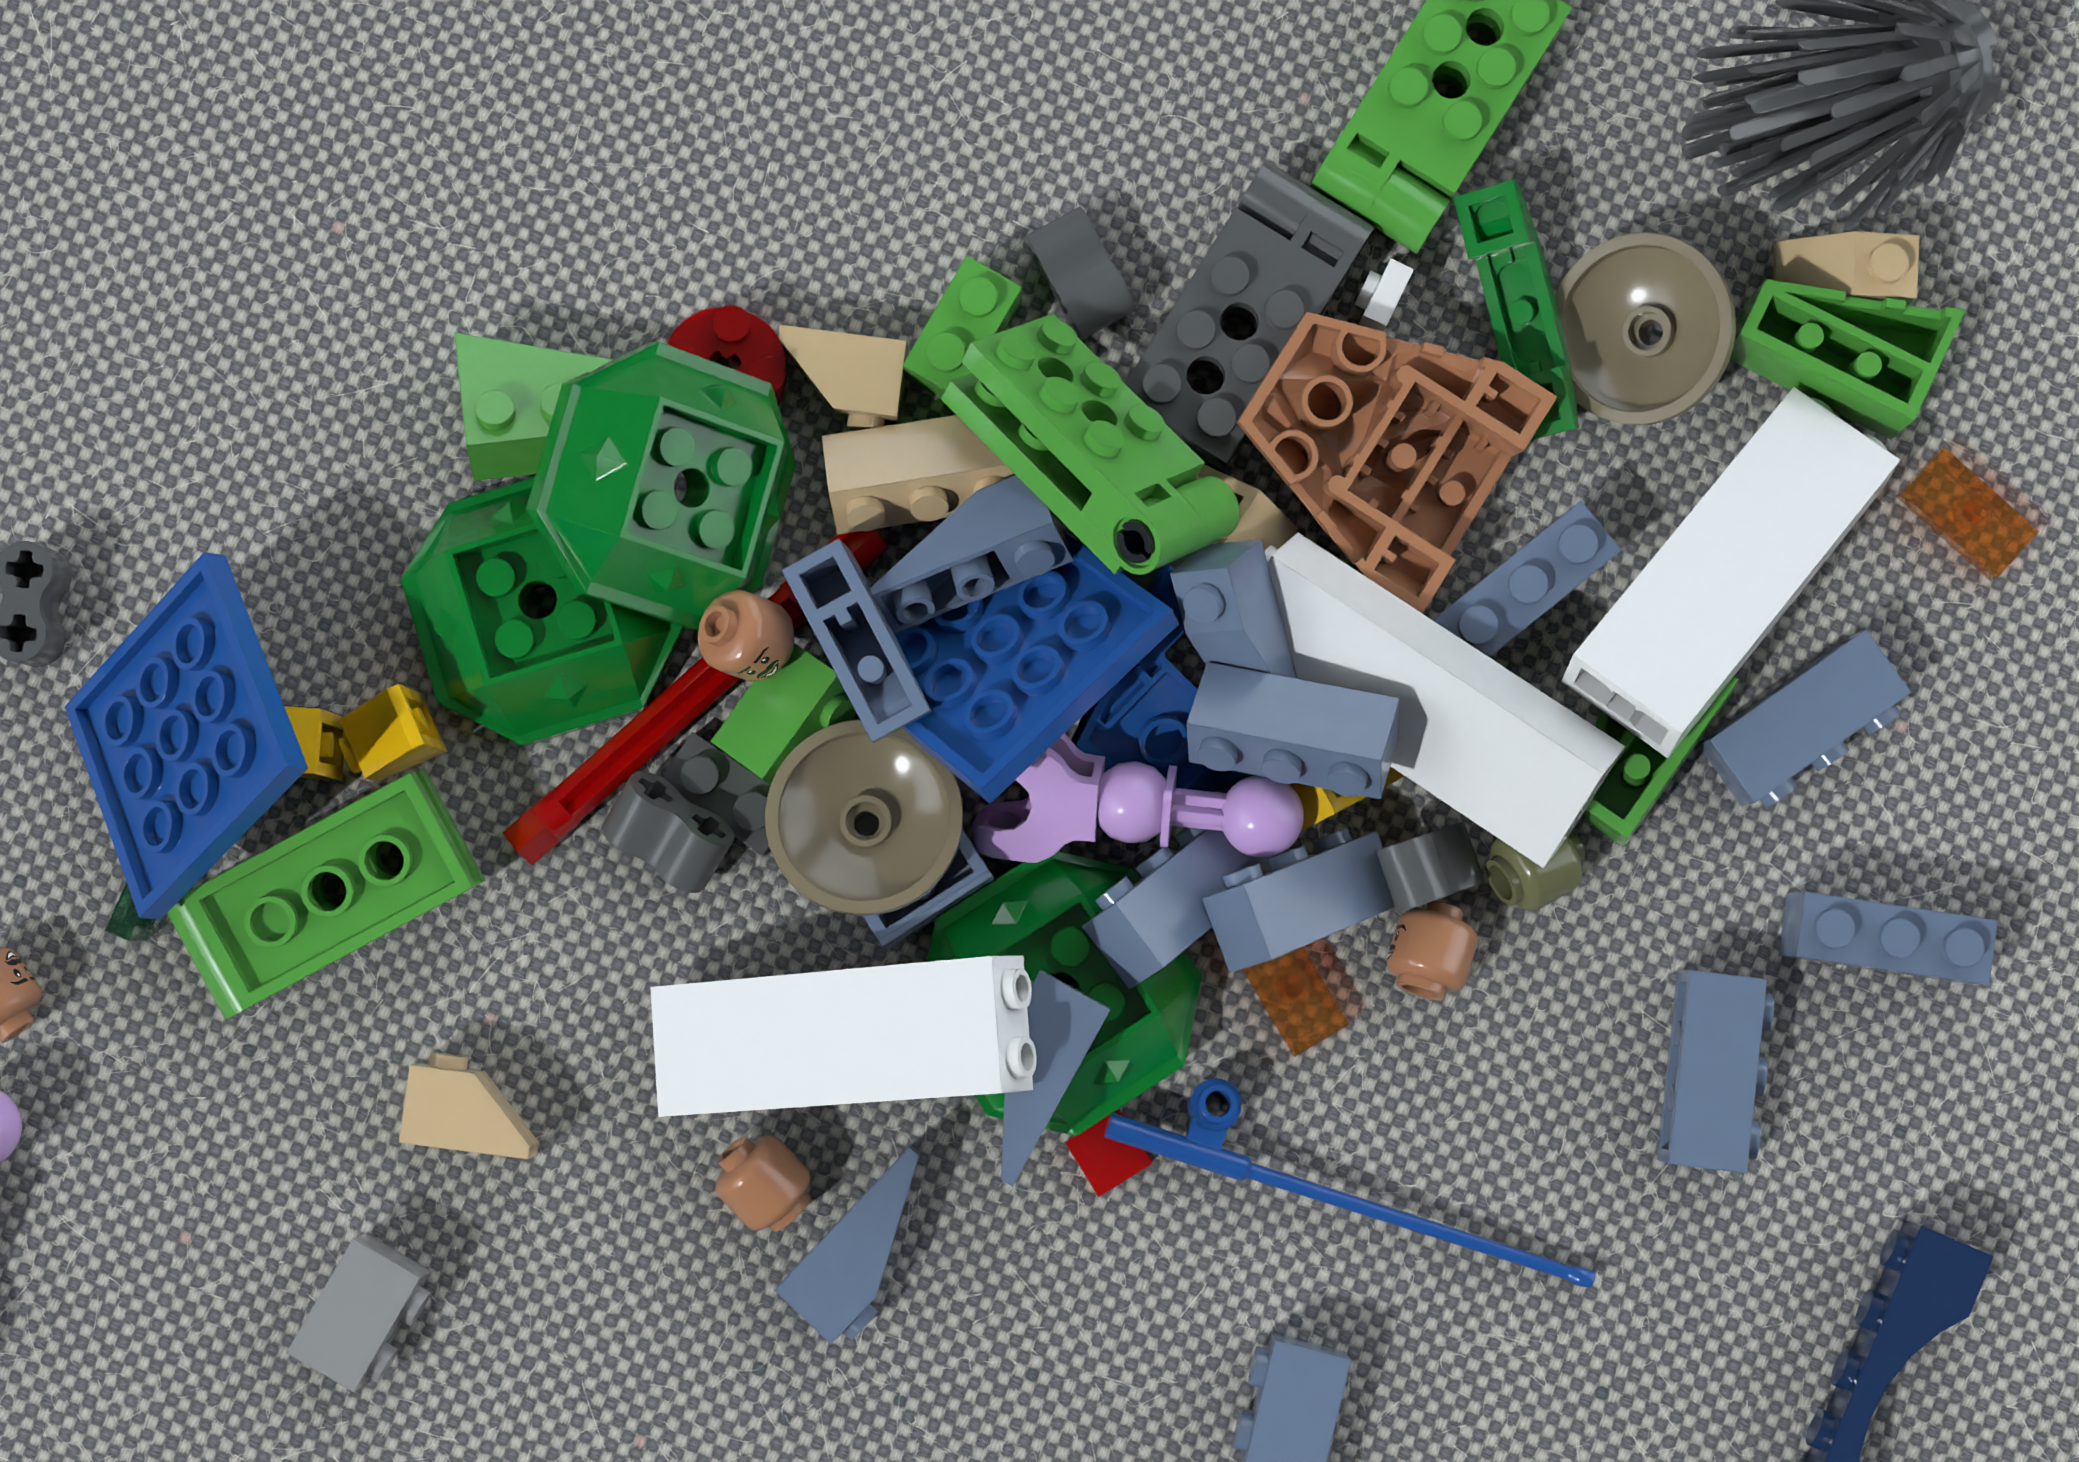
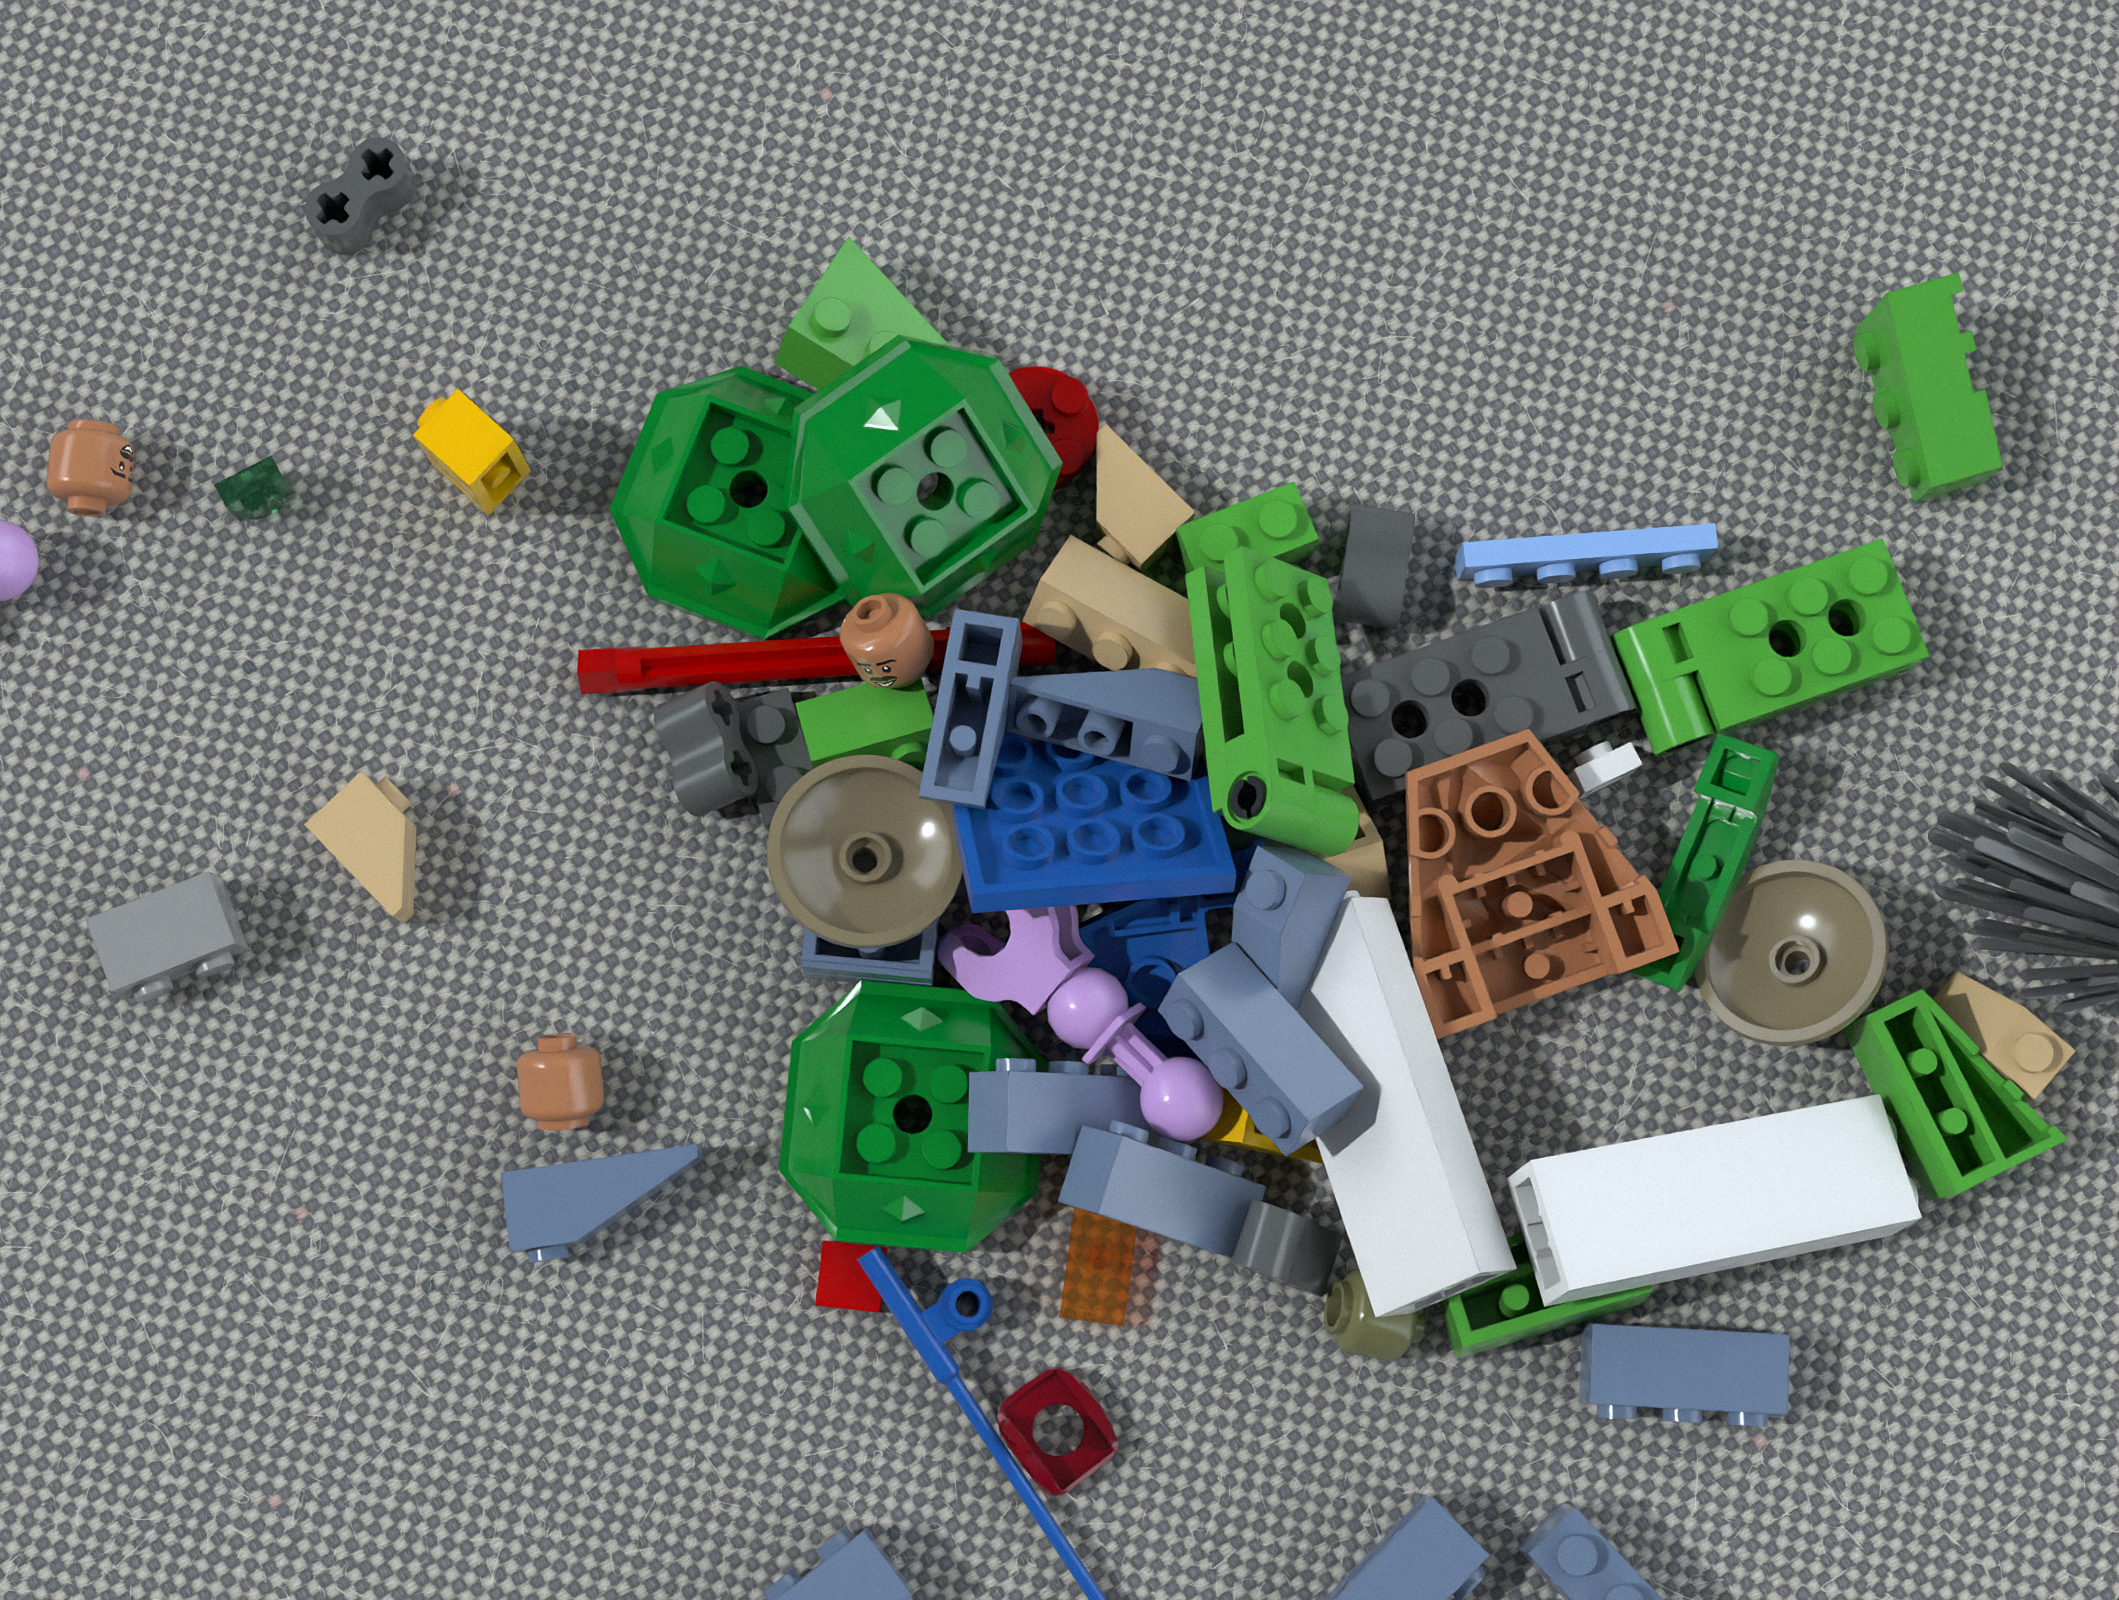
camera: 35 degrees right, 5 degrees down
(184, 736) = (393, 381): blue plate -> none
(277, 925) = (348, 574): bright green hinge -> none
(390, 734) = (554, 506): yellow slope -> none
(844, 1036) = (714, 1011): white brick -> none
(1062, 1031) = (859, 1146): sand blue slope -> none
(1258, 117) = (1611, 552): none -> light blue plate
(1387, 1175) = (1015, 1423): none -> dark red piece
(1432, 951) = (1236, 1319): nougat head -> none
(1530, 581) = (1544, 1084): sand blue brick -> none
(1967, 514) = (1946, 1310): clear orange plate -> none

